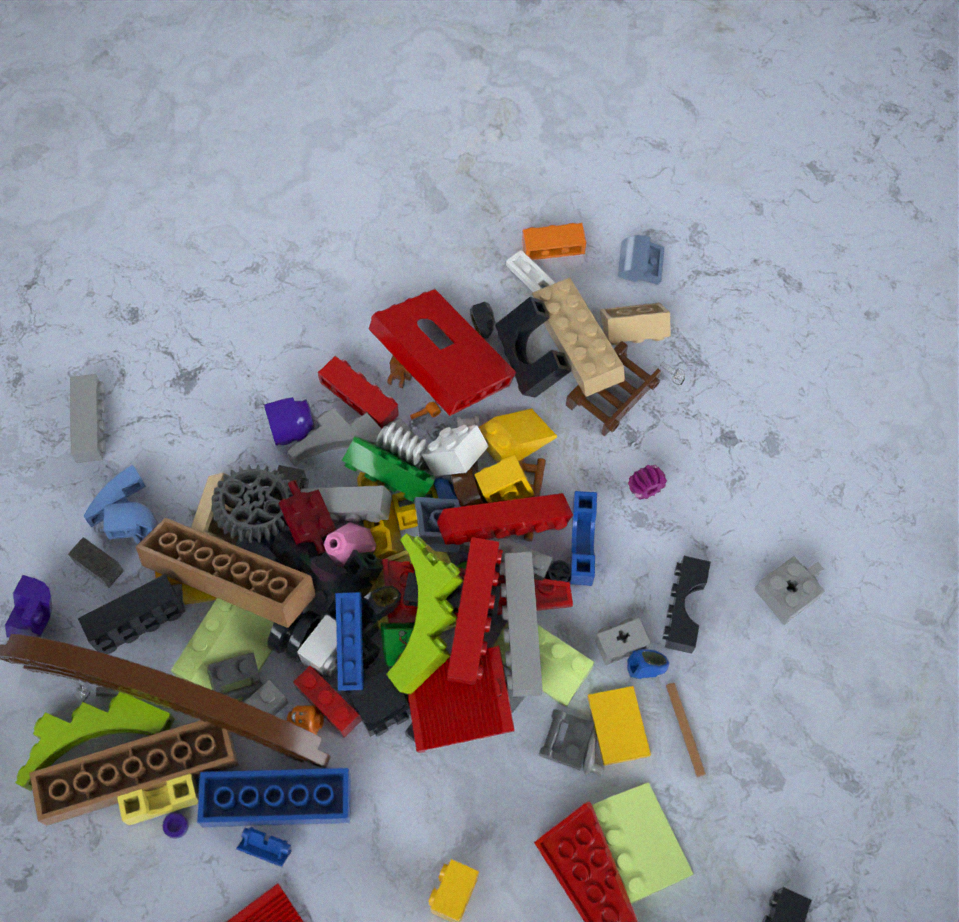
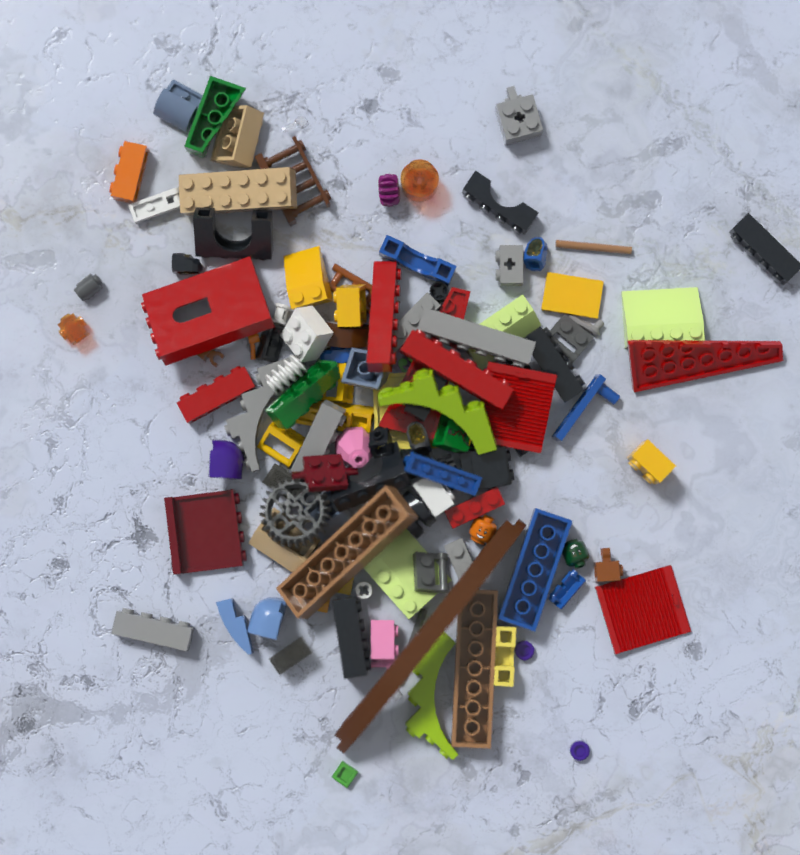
camera: 65 degrees left, 20 degrees up
(31, 608) = (316, 716): dark purple brick -> none
(143, 649) = (382, 643): none -> bright pink hinge
(192, 607) = (370, 589): none -> white bush
(208, 431) = (205, 531): none -> dark red panel
(304, 889) = (607, 569): none -> dark orange brick
(311, 842) = (575, 553): none -> dark green head
(339, 474) = (287, 436): none -> yellow tile
(376, 245) = (73, 328): none -> clear orange brick
(424, 244) = (88, 286): none -> dark grey brick
(431, 427) = (270, 344): none -> black slope
(522, 791) = (595, 386): none -> blue piece
(531, 726) = (551, 361): none -> black brick
(644, 286) = (213, 110): none -> green wedge
(671, 509) = (409, 177): none -> clear orange brick

